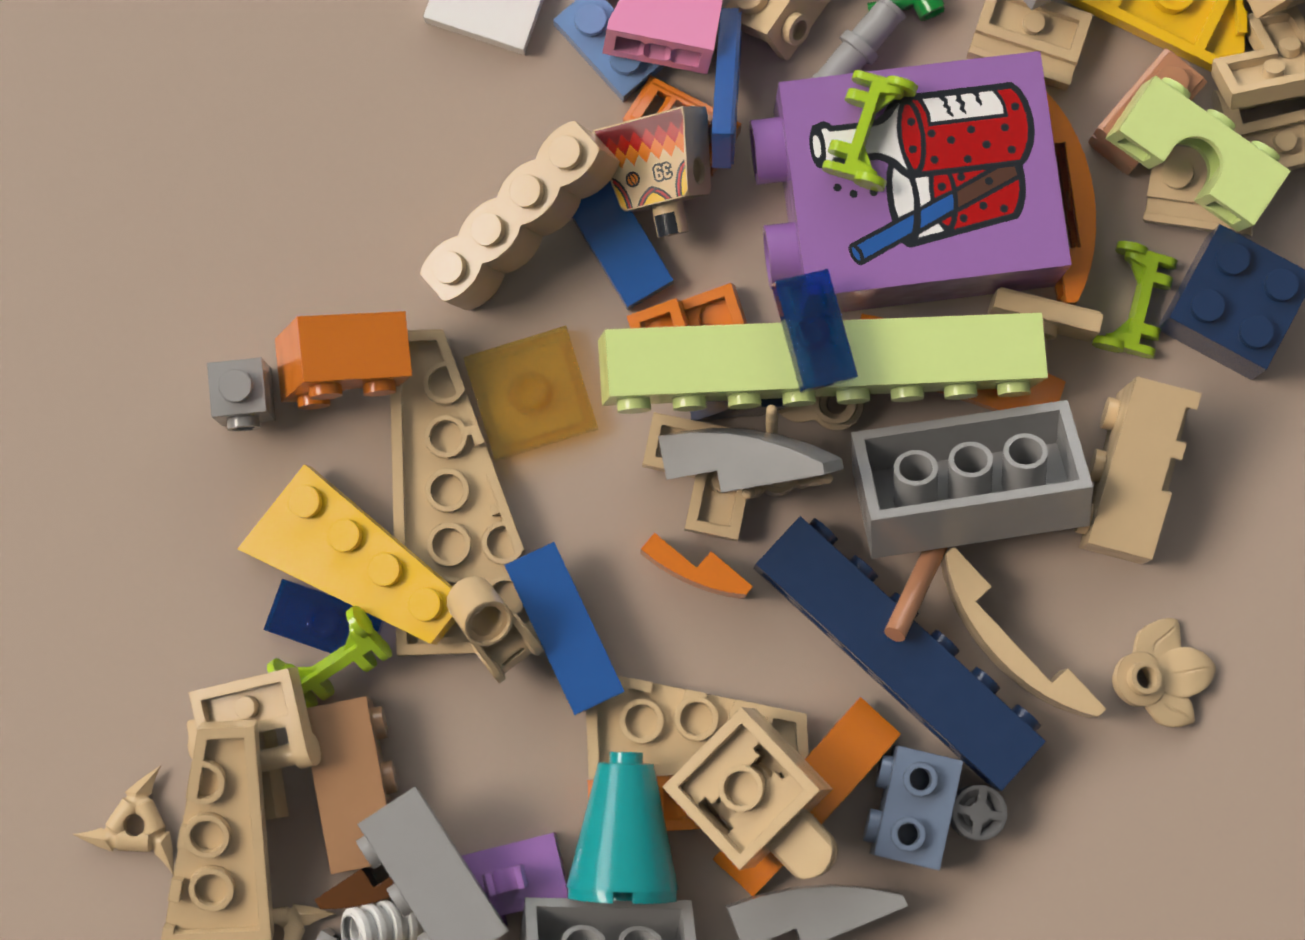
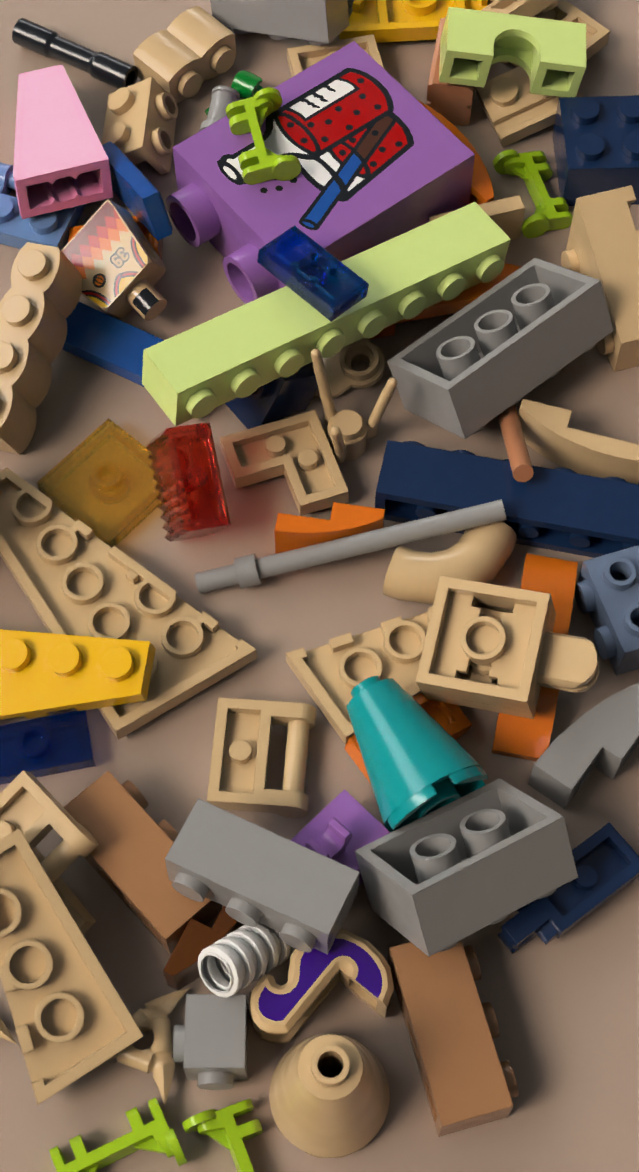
camera: 30 degrees left, 20 degrees down
(357, 649) = (75, 733): lime piece -> none
(494, 738) = (242, 756): none -> tan plate
(495, 632) = (196, 653): tan piece -> none
(564, 628) = (250, 627): blue tile -> none
(591, 456) = (188, 482): none -> clear red brick
(605, 564) = (250, 570): none -> light grey bar
(743, 457) = (315, 407): light grey slope -> none
(781, 676) = (475, 557): none -> tan cylinder

